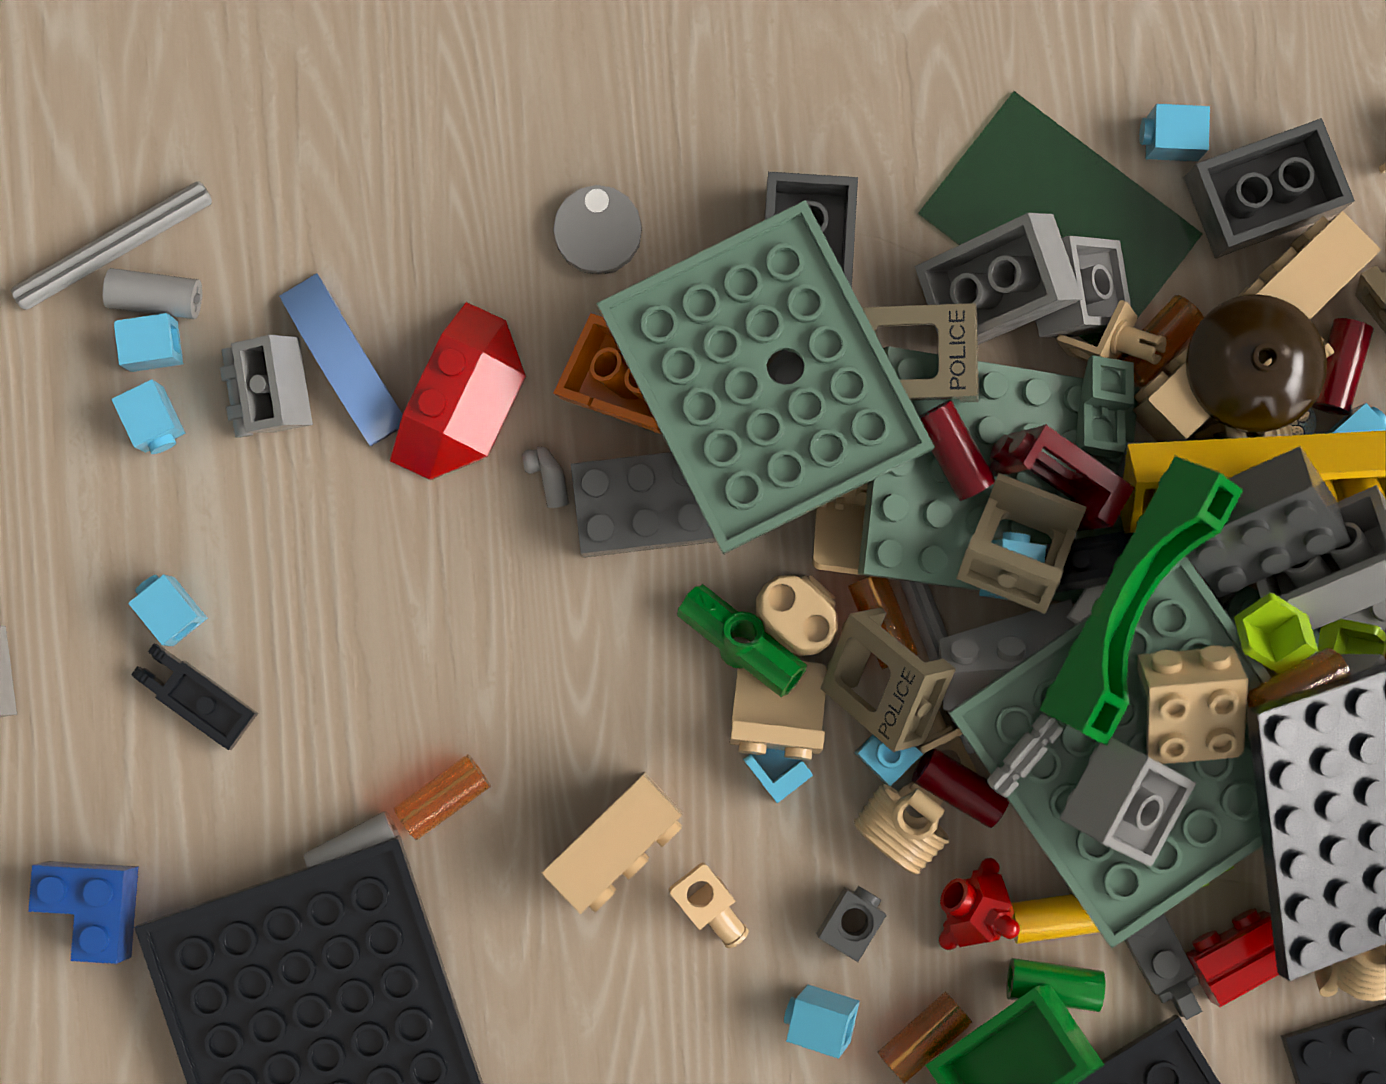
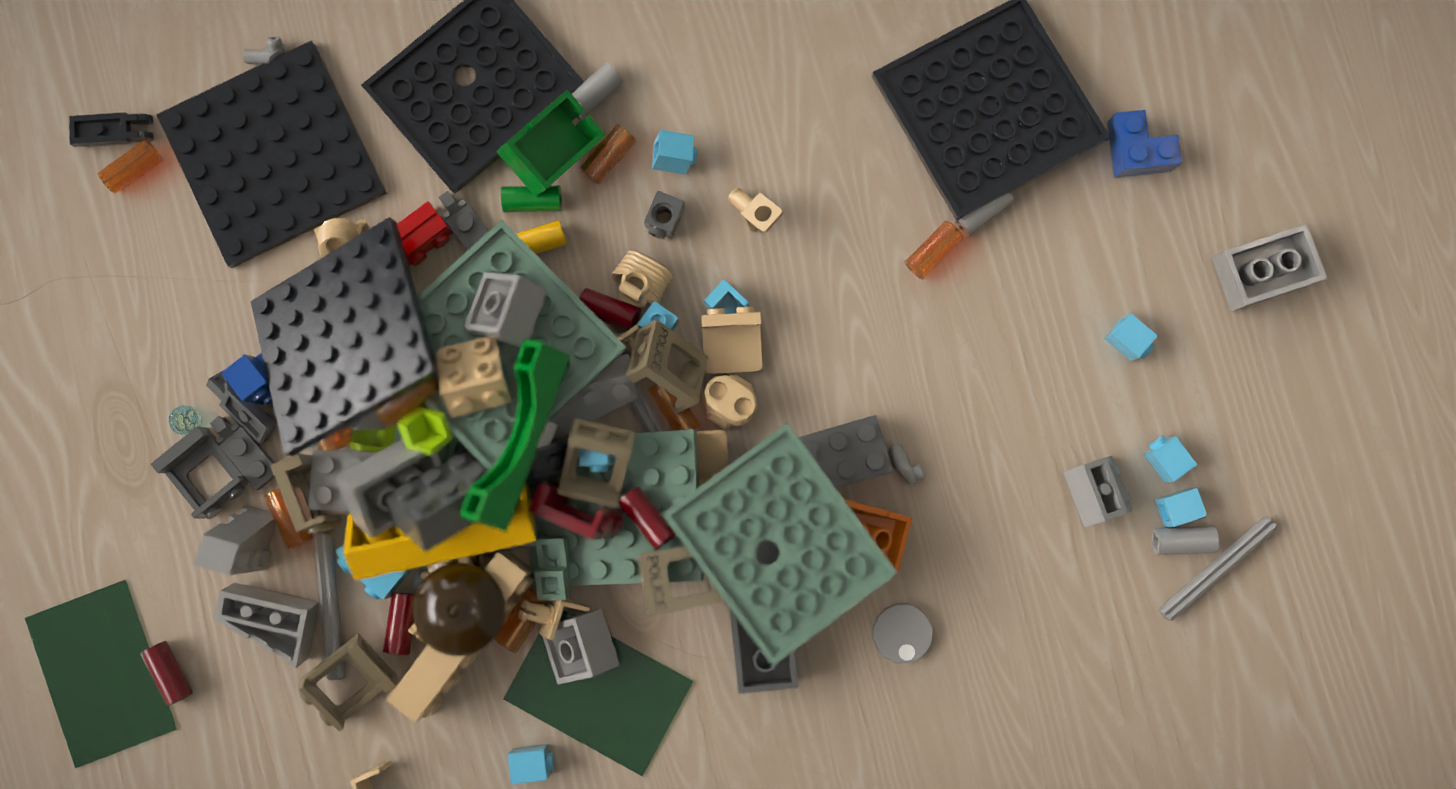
camera: 170 degrees right, 0 degrees up
(198, 699) = (1100, 285): black hinge -> none
(342, 359) = (1052, 518): medium blue slope -> none
(460, 396) = (971, 507): red wedge -> none
(614, 845) = (821, 236): tan brick -> none
(761, 657) = (748, 368): green piece -> none
(977, 909) = (587, 236): red rock -> none
(1008, 272) = (632, 642): light grey brick -> none
(1025, 755) = (574, 326): light grey axle -> none
(1268, 188) = (464, 735): dark grey brick -> none

